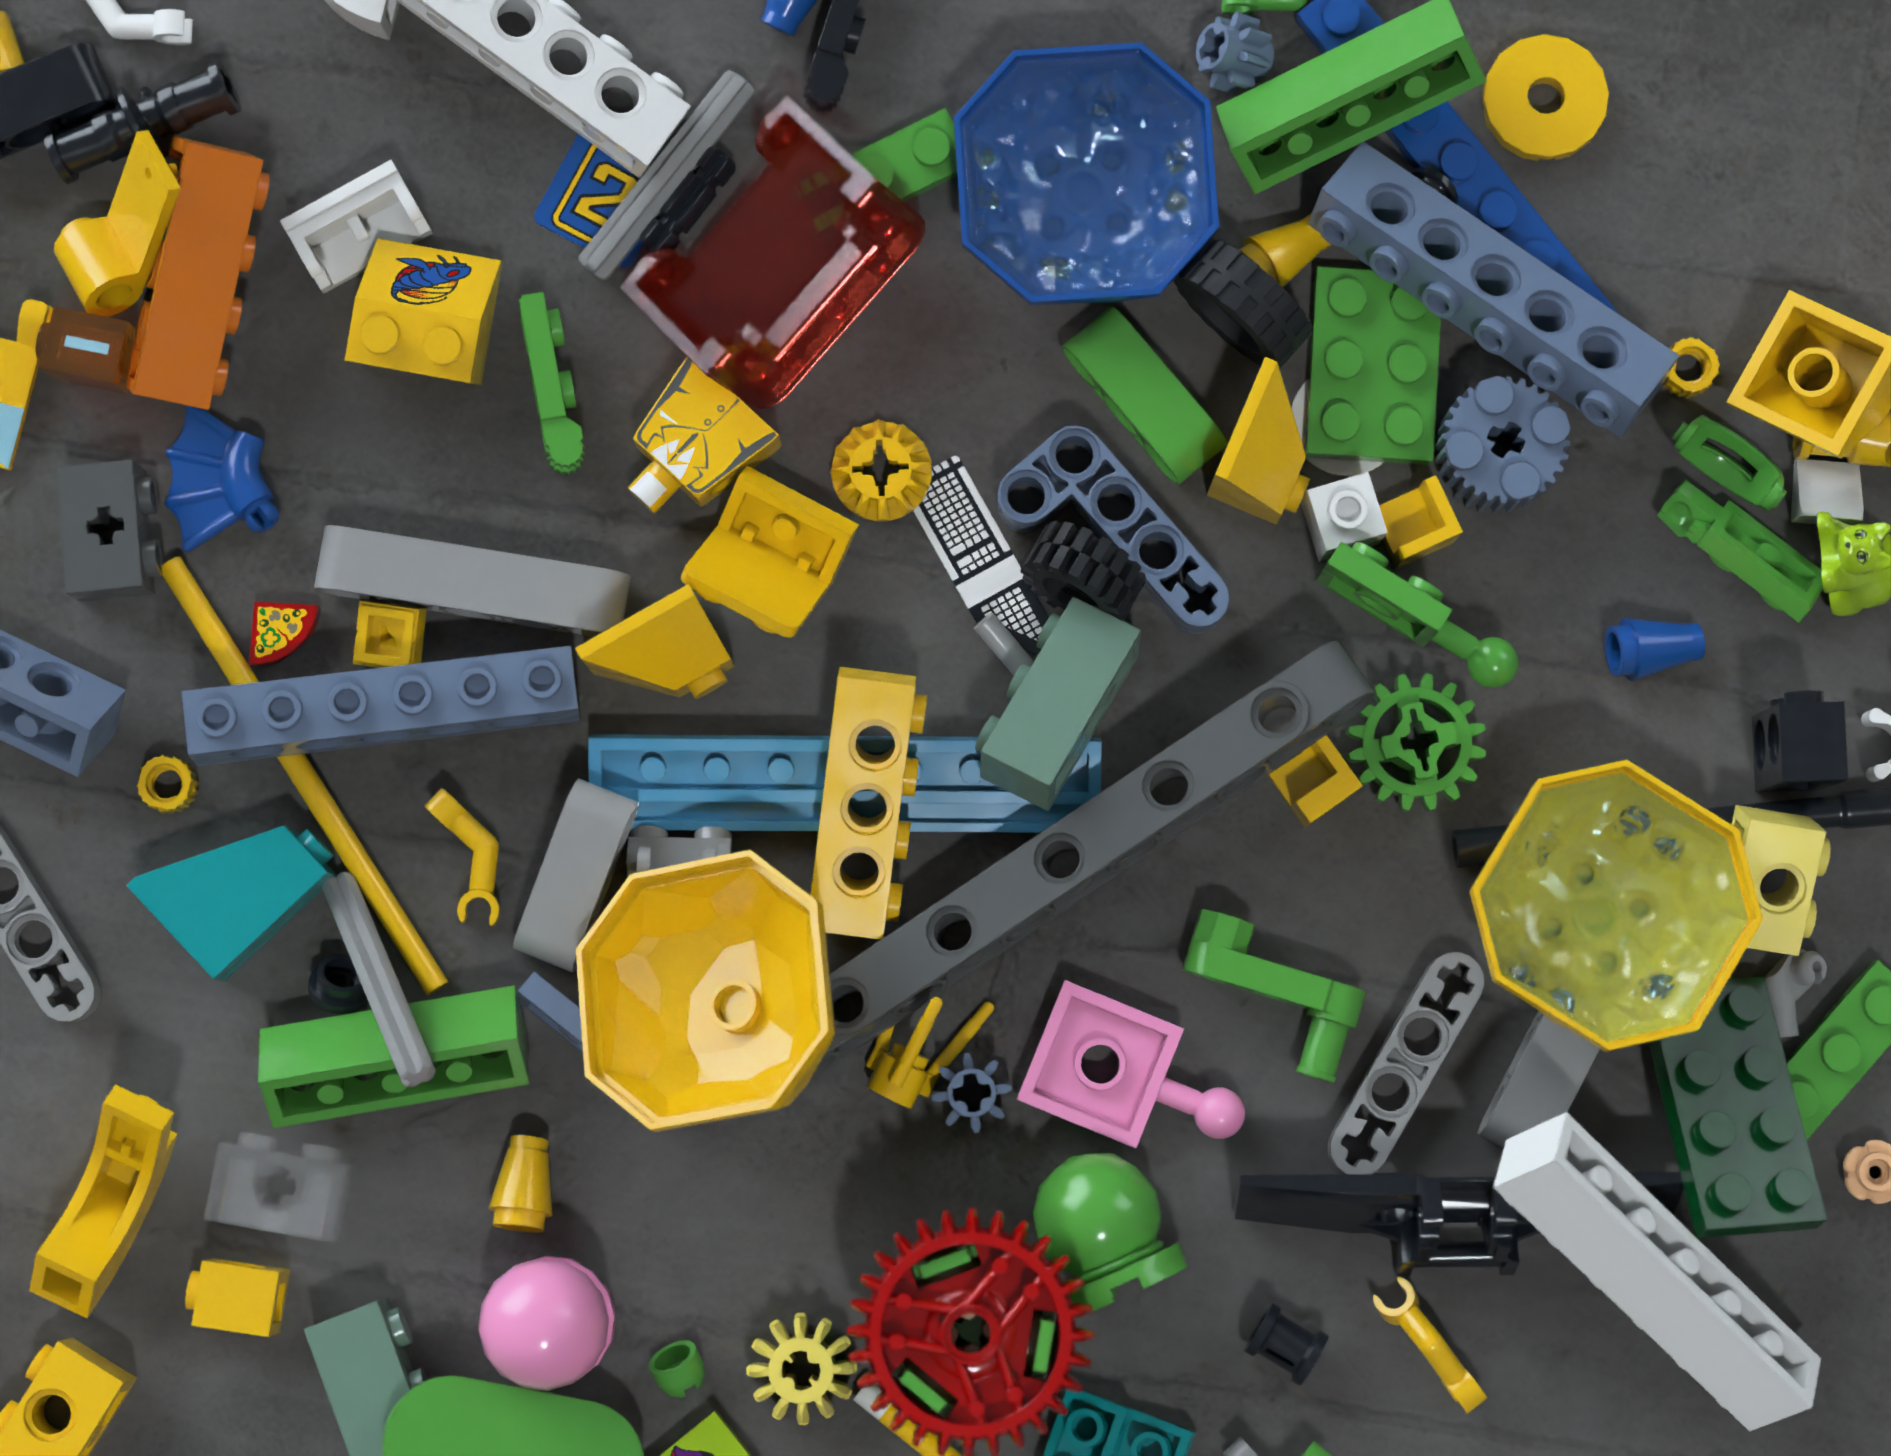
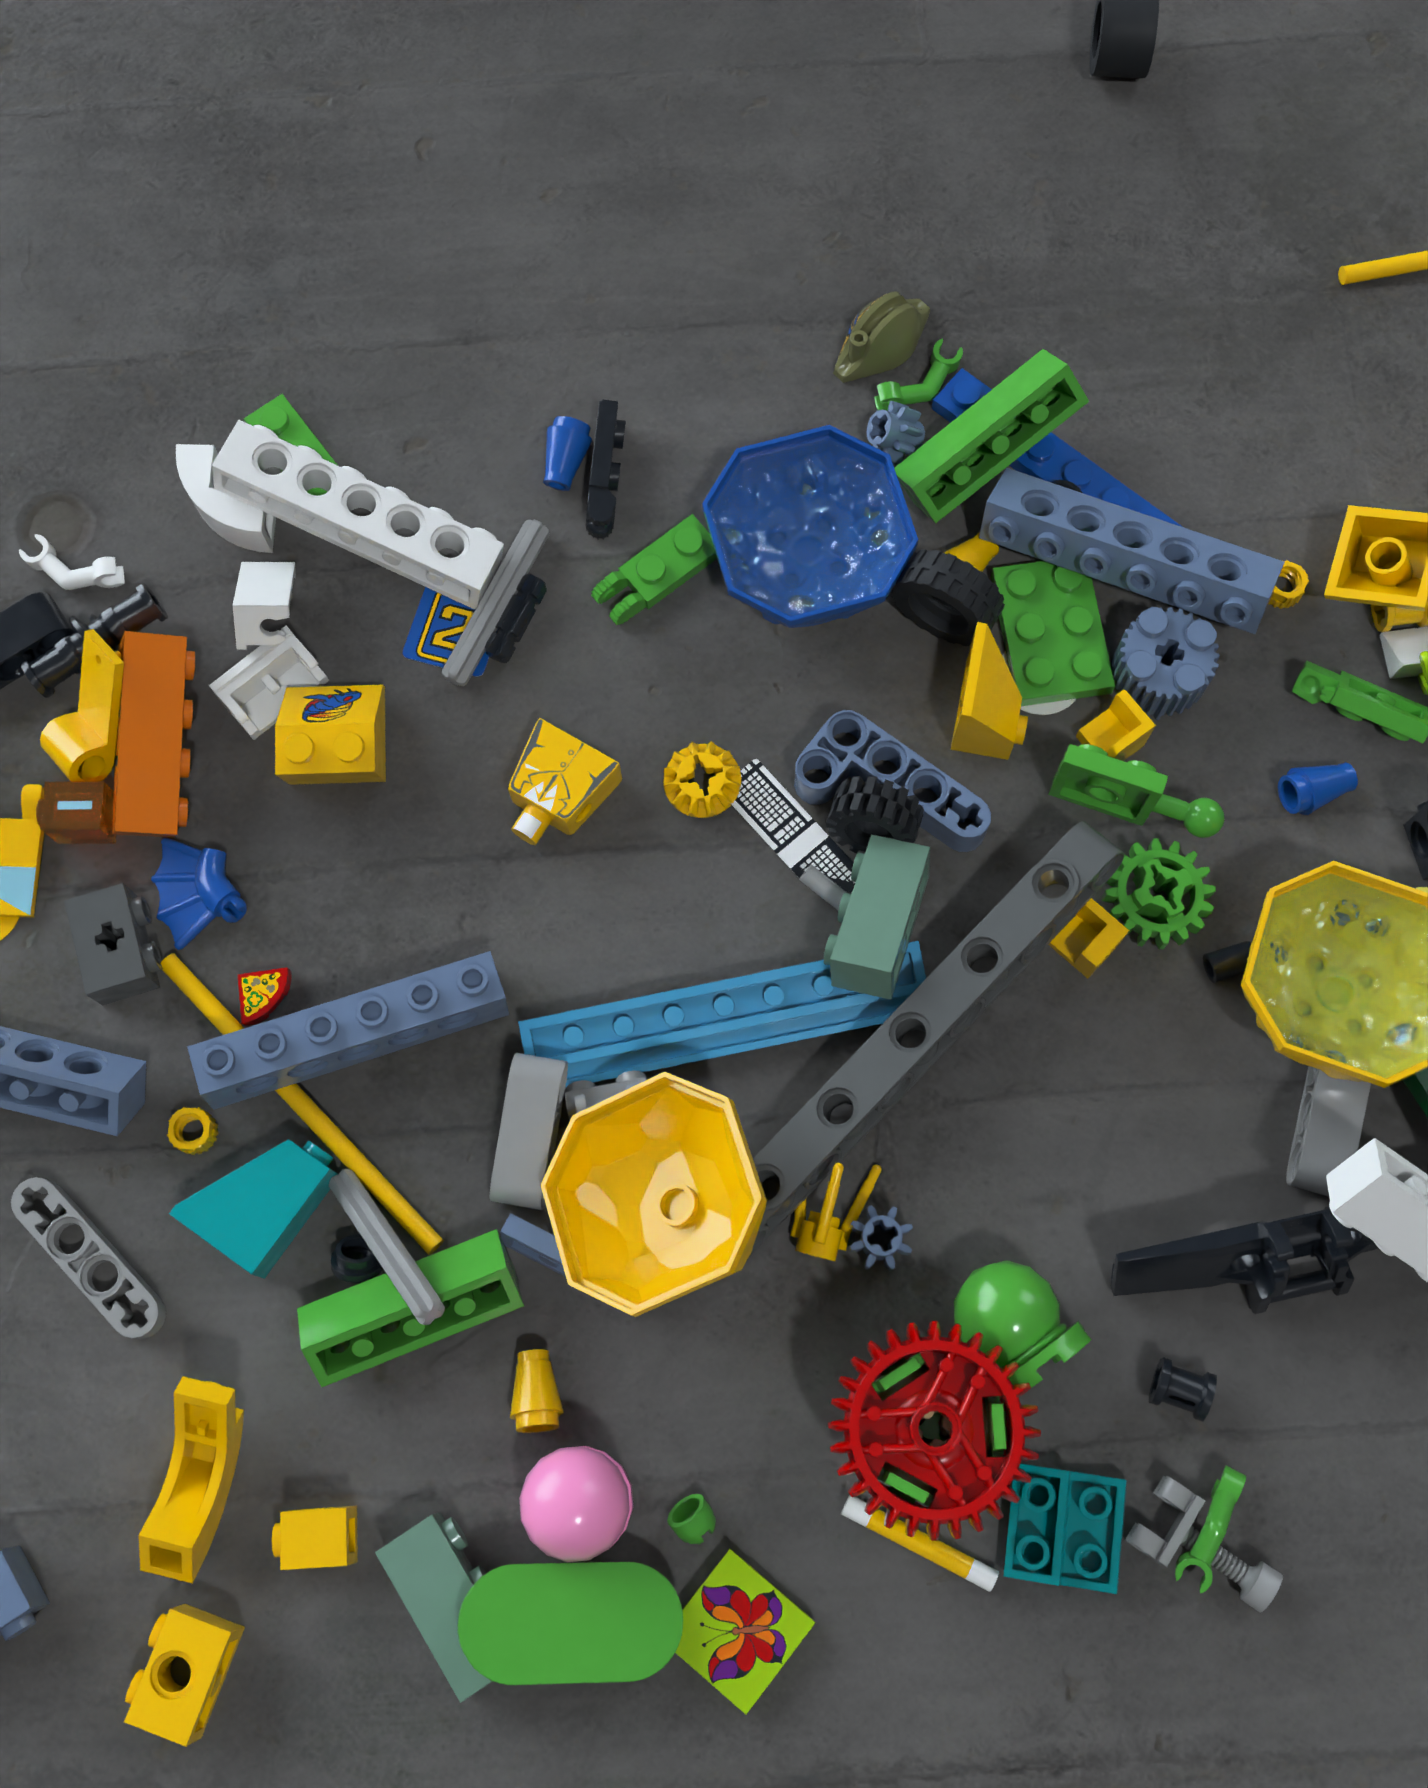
camera: 10 degrees left, 10 degrees down
(242, 1194) = (304, 1441): clear brick -> none
(367, 120) = (262, 594): none -> white hinge
(388, 634) = (346, 974): yellow tile -> none
(471, 581) = (404, 924): light grey beam -> none
(484, 848) = (453, 1130): yellow arm -> none
(551, 387) = (438, 768): bright green hinge -> none
(662, 649) = (560, 940): yellow slope -> none
(770, 554) = (632, 852): yellow bracket -> none
(782, 263) = (599, 637): clear red windscreen -> none
(786, 1383) = (784, 1512): light yellow gear -> none
(864, 701) = (724, 945): yellow brick -> none
(1144, 395) = (888, 683): bright green beam -> none
(1144, 1055) = (1009, 1176): bright pink plate -> none
(1220, 955) = (1051, 1089): bright green beam -> none
(1343, 513) = (1053, 731): white brick -> none
(1397, 1059) = (1224, 1146): light grey beam -> none
(1433, 1347) = (1327, 1389): yellow arm -> none
(1550, 62) = (1132, 399): yellow tile -> none
(1761, 489) = (1367, 651): bright green helmet -> none

